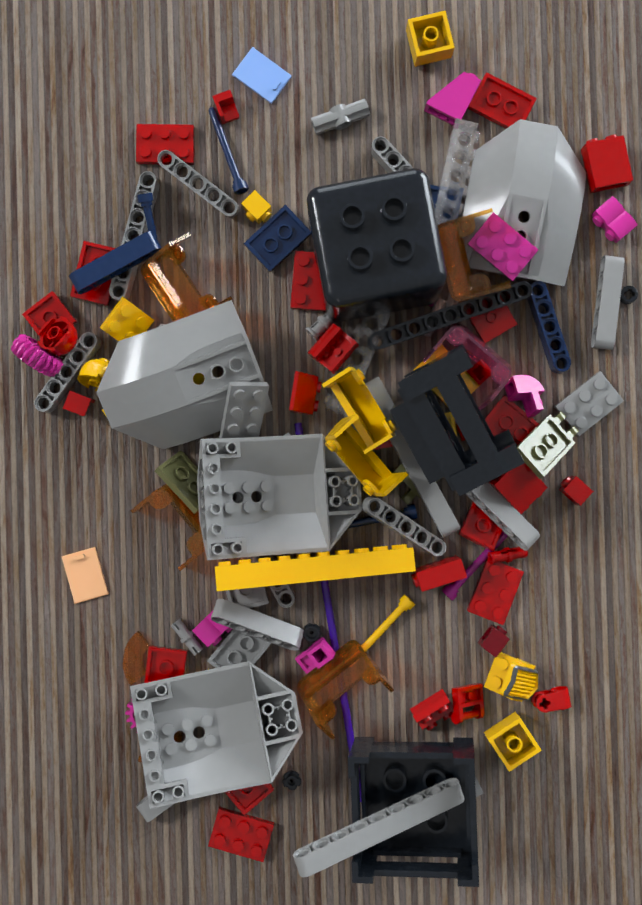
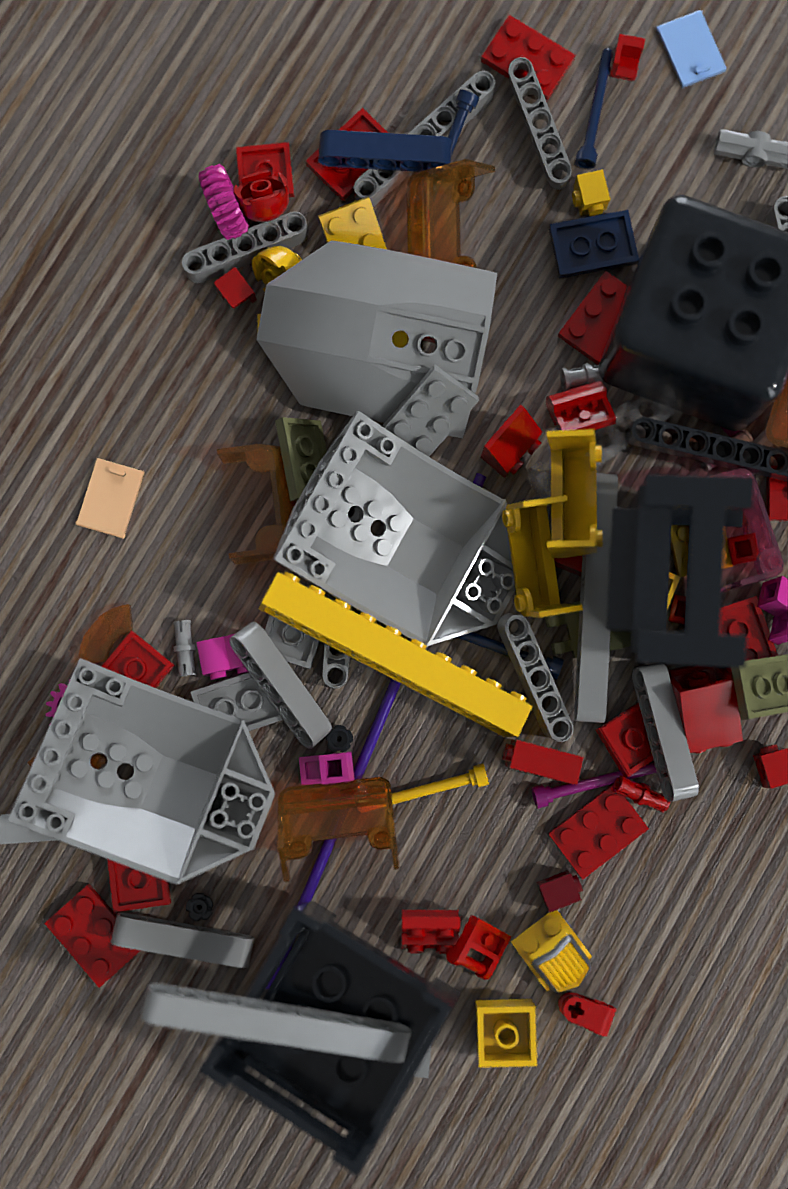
camera: 30 degrees right, 5 degrees down
(294, 806) = (182, 940): none -> light grey beam

